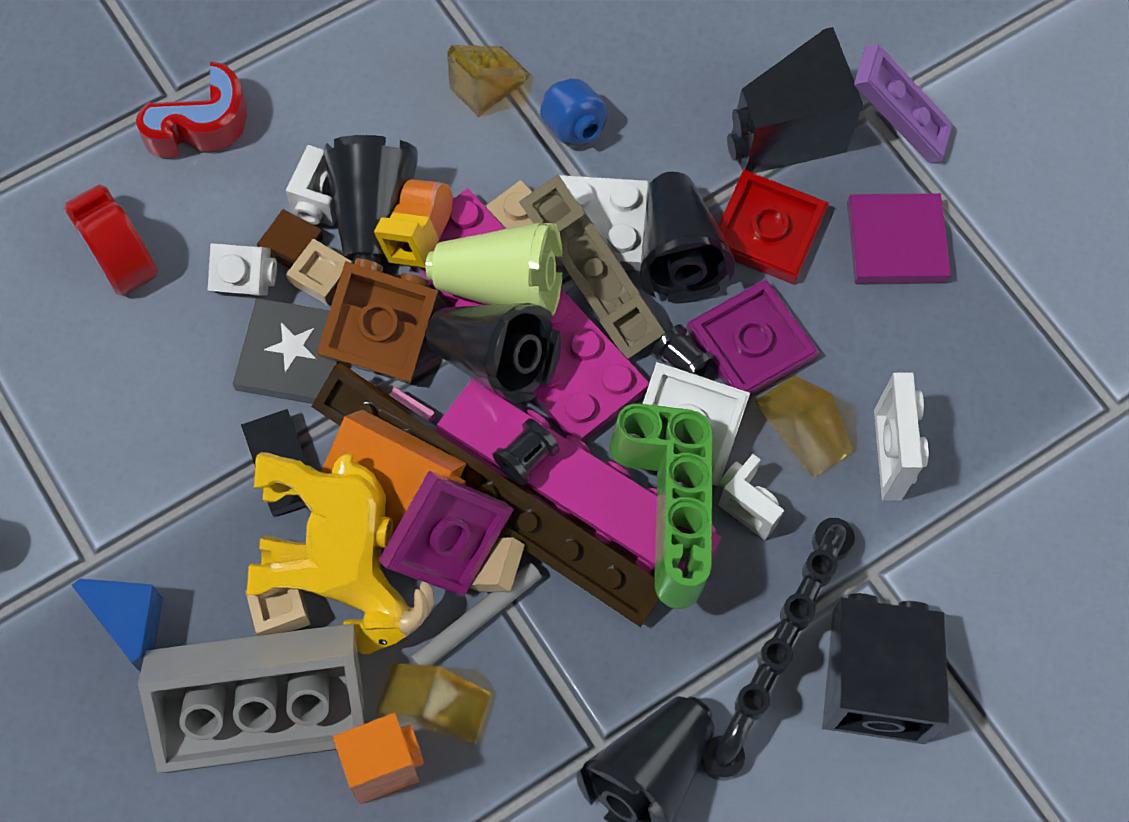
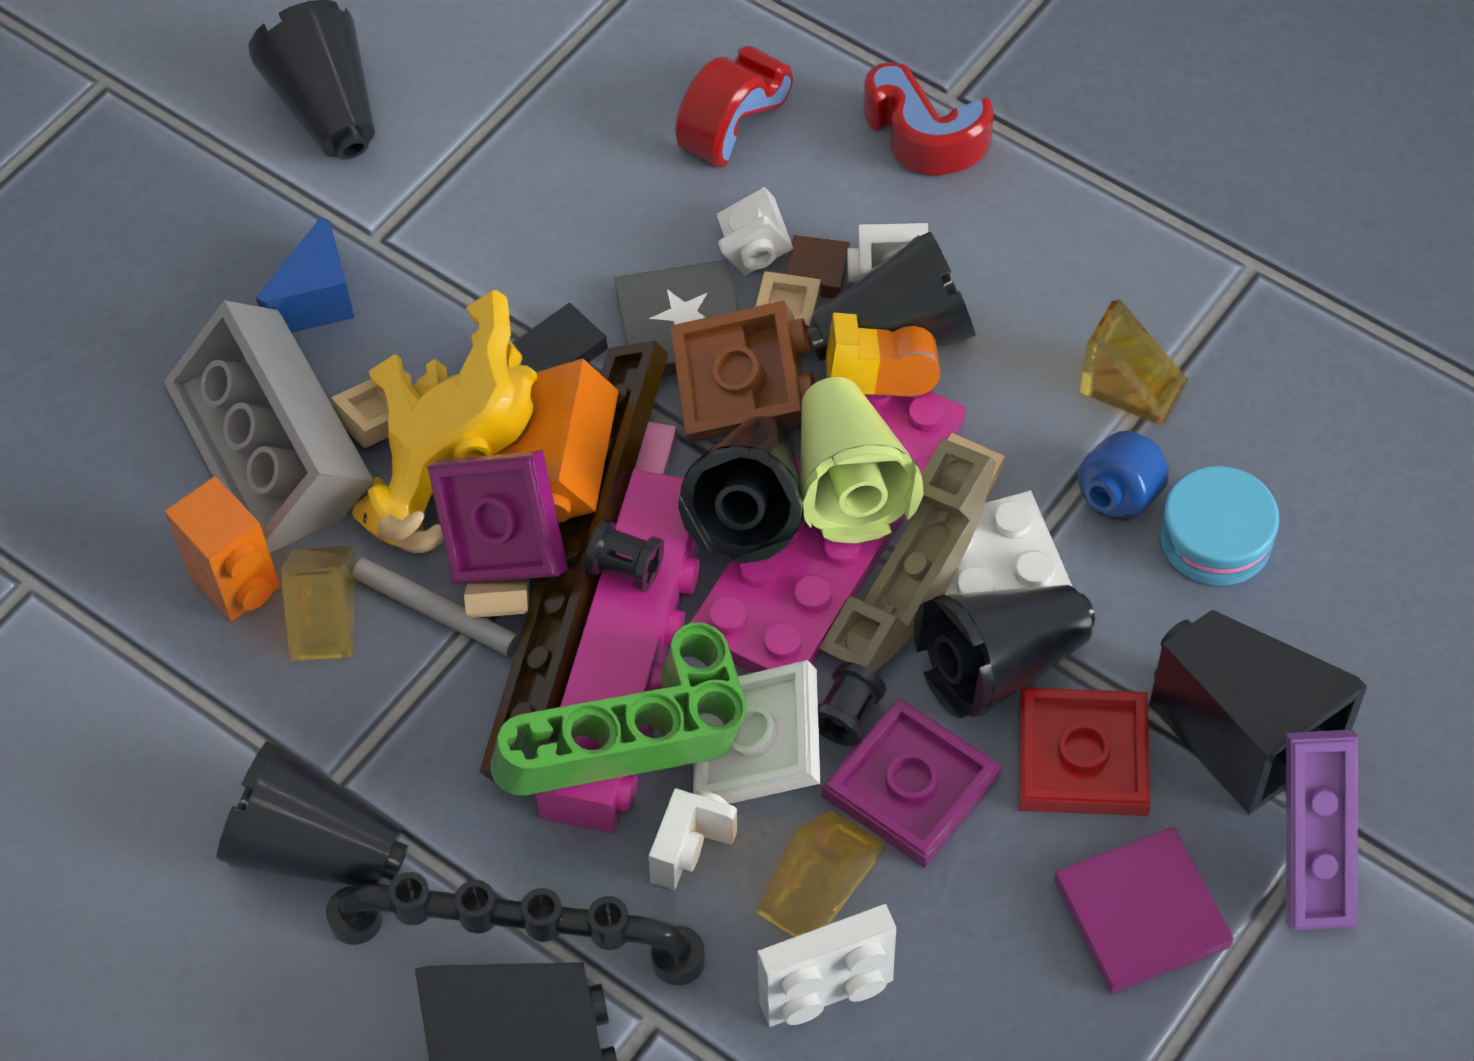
camera: 75 degrees right, 10 degrees down
(634, 74) = (1219, 525): none -> medium azure head

